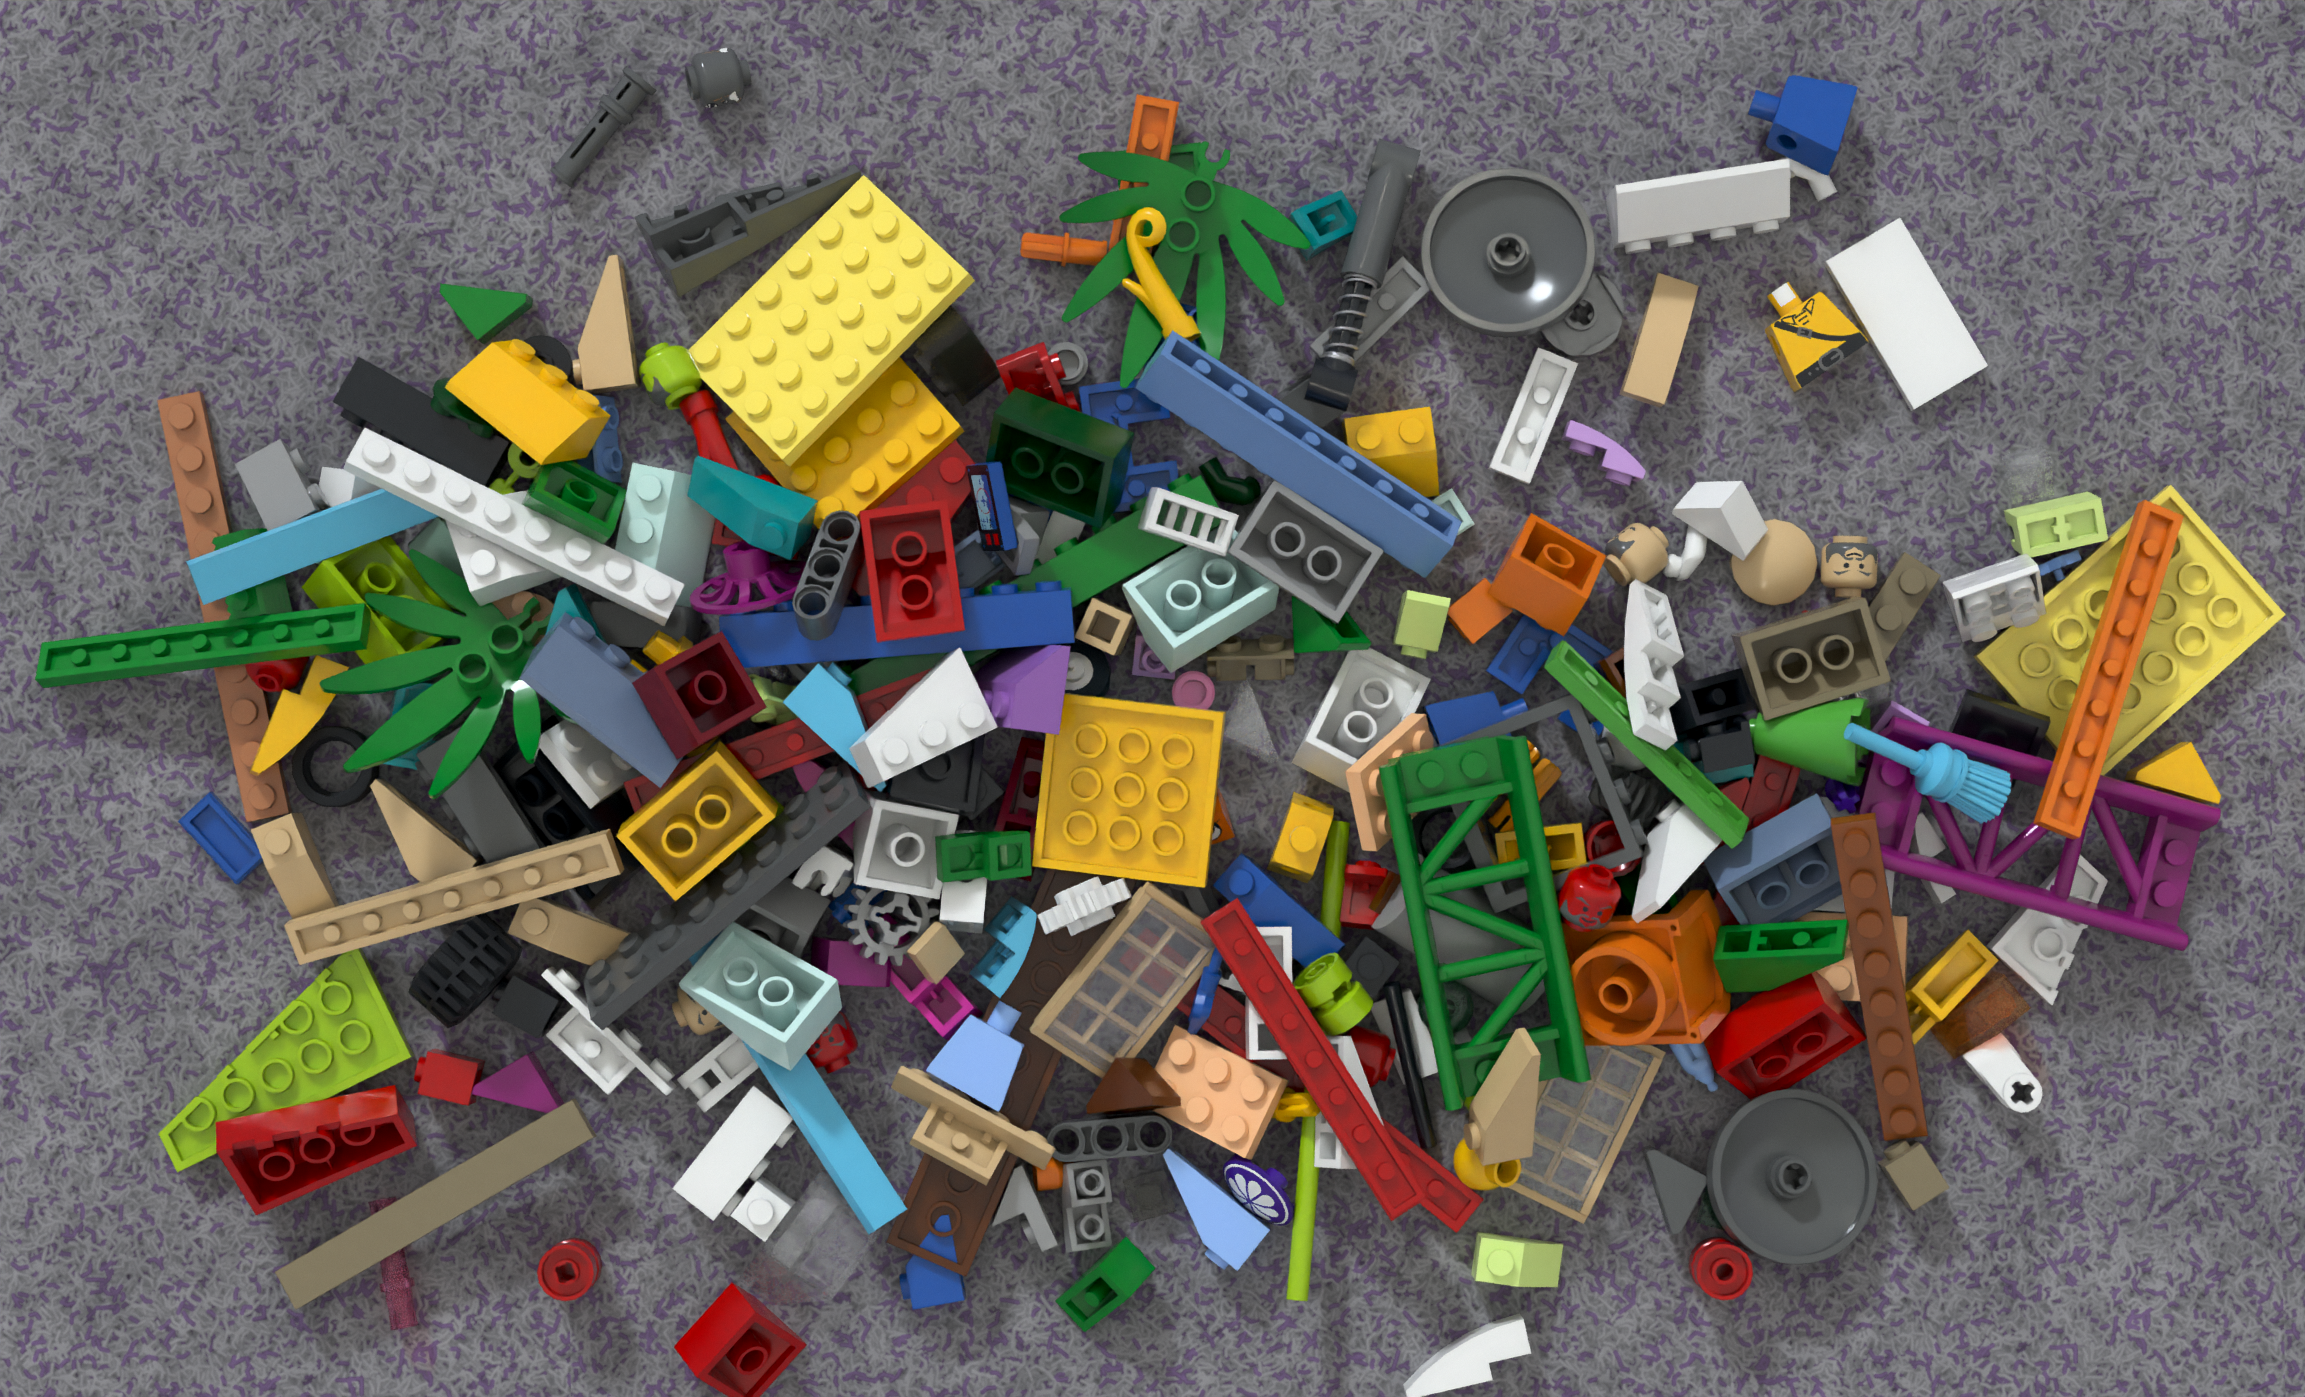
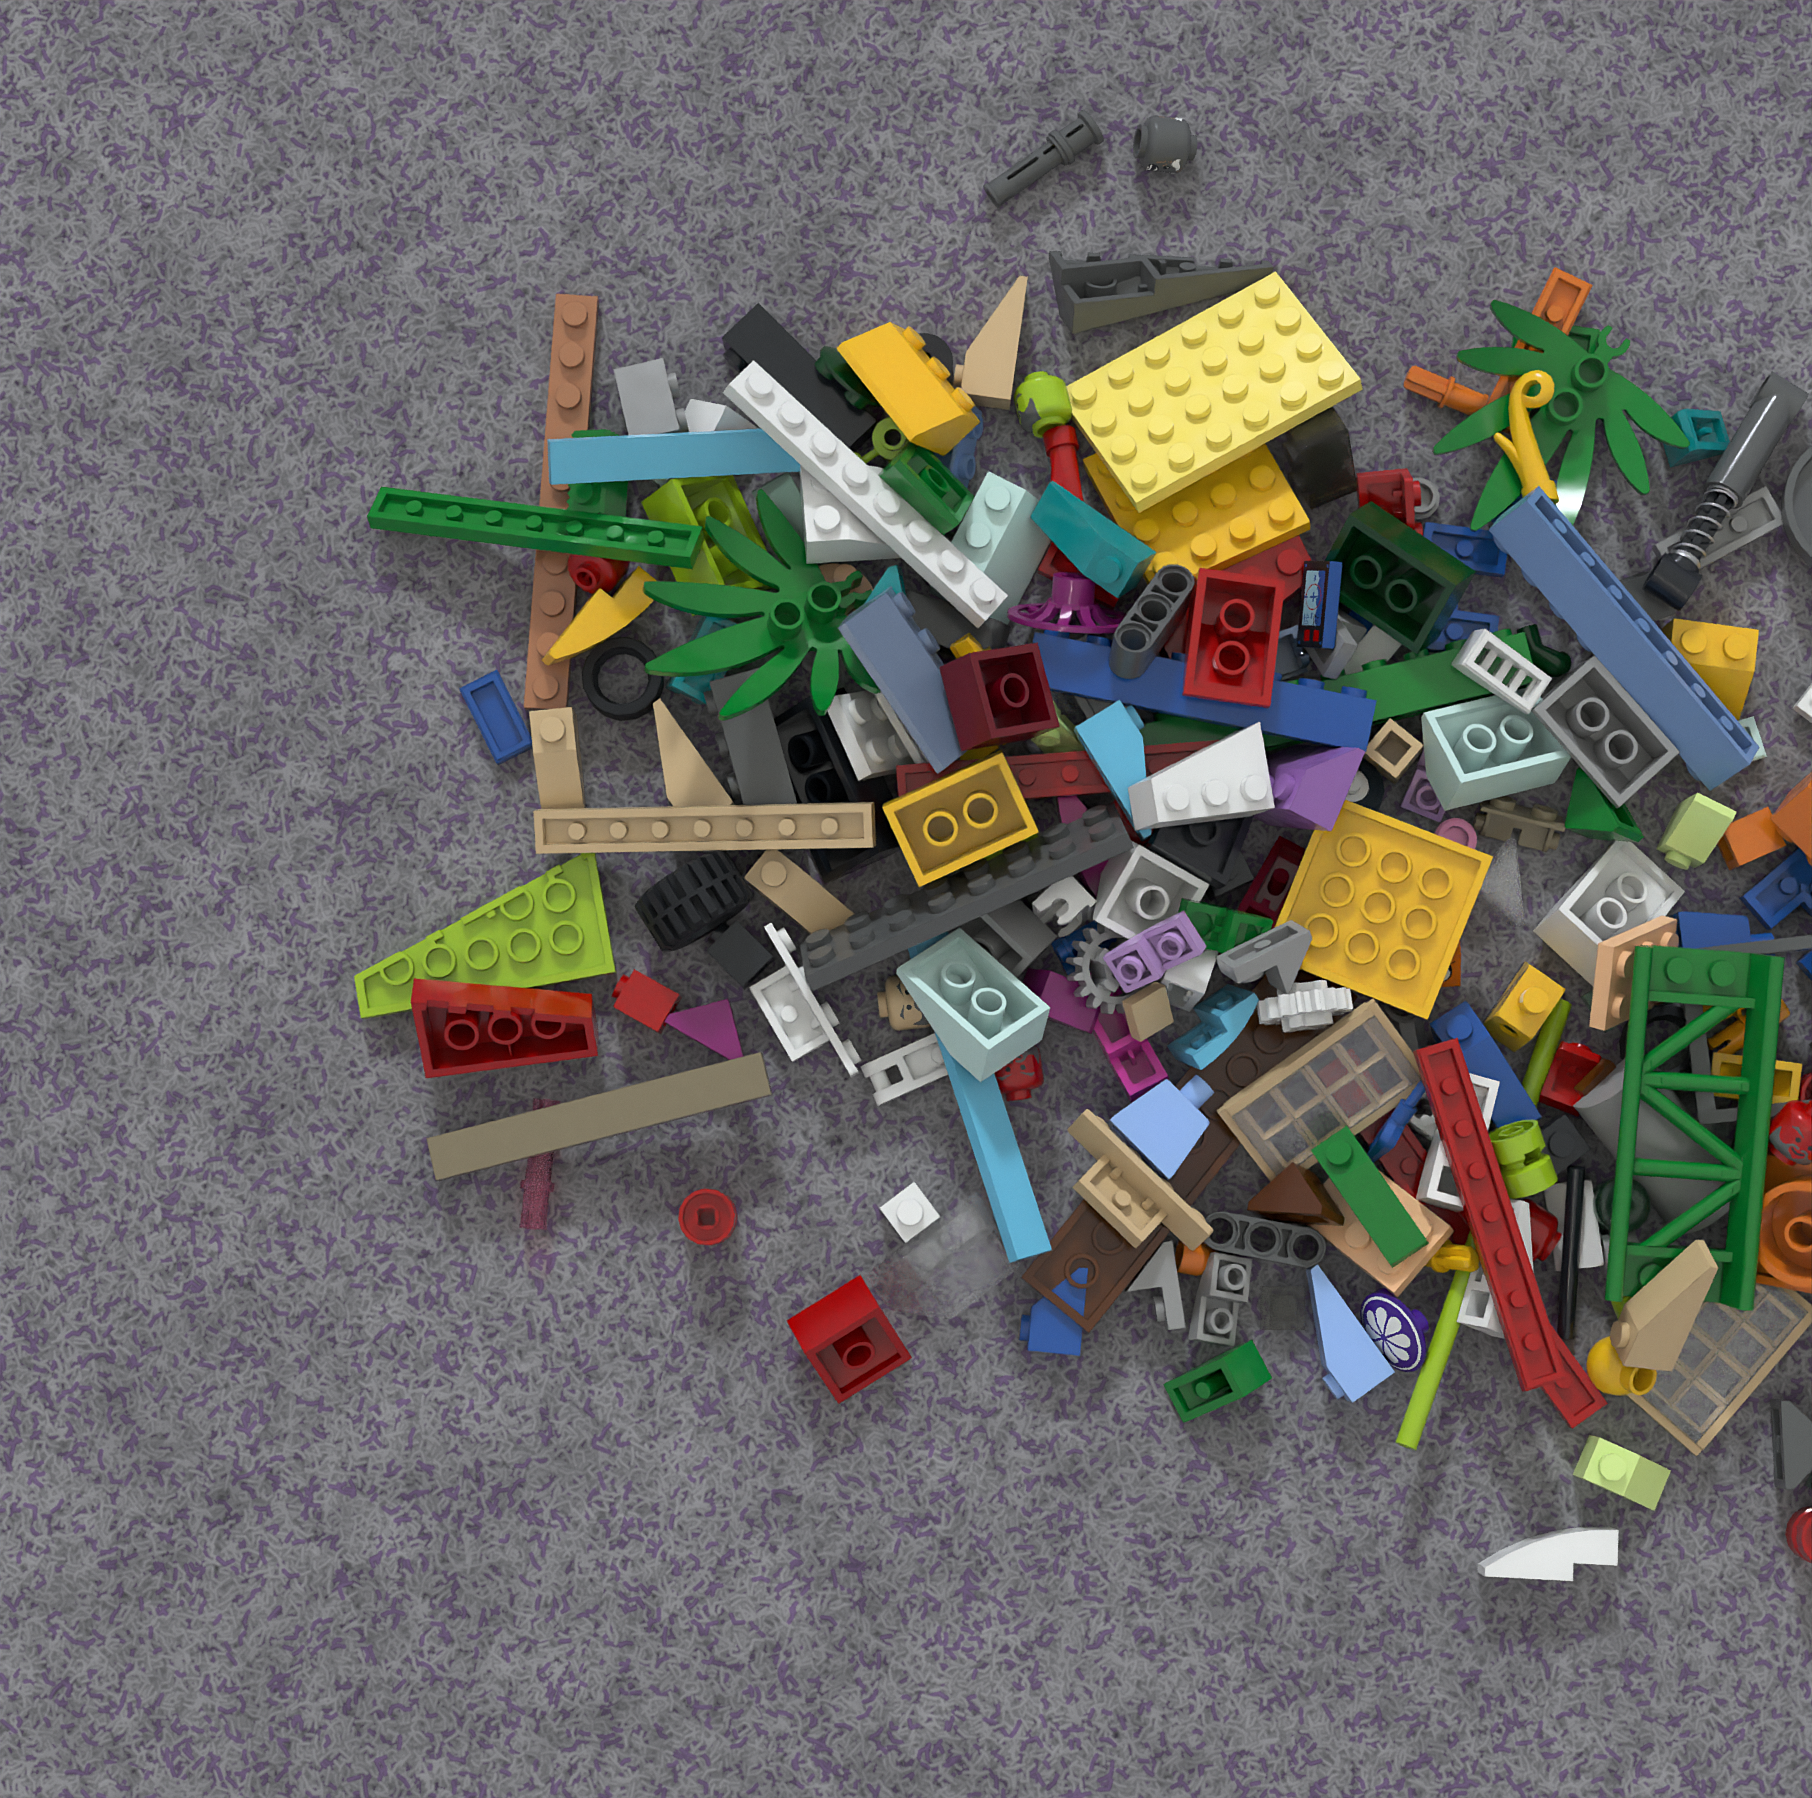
camera: 20 degrees right, 5 degrees down
(485, 310) = (888, 295): green slope -> none
(736, 1153) = (899, 1152): white brick -> none
(921, 897) = (1154, 951): none -> lavender slope
(1038, 863) = (1275, 952): none -> light grey slope
(1196, 1070) = (1369, 1196): none -> green slope

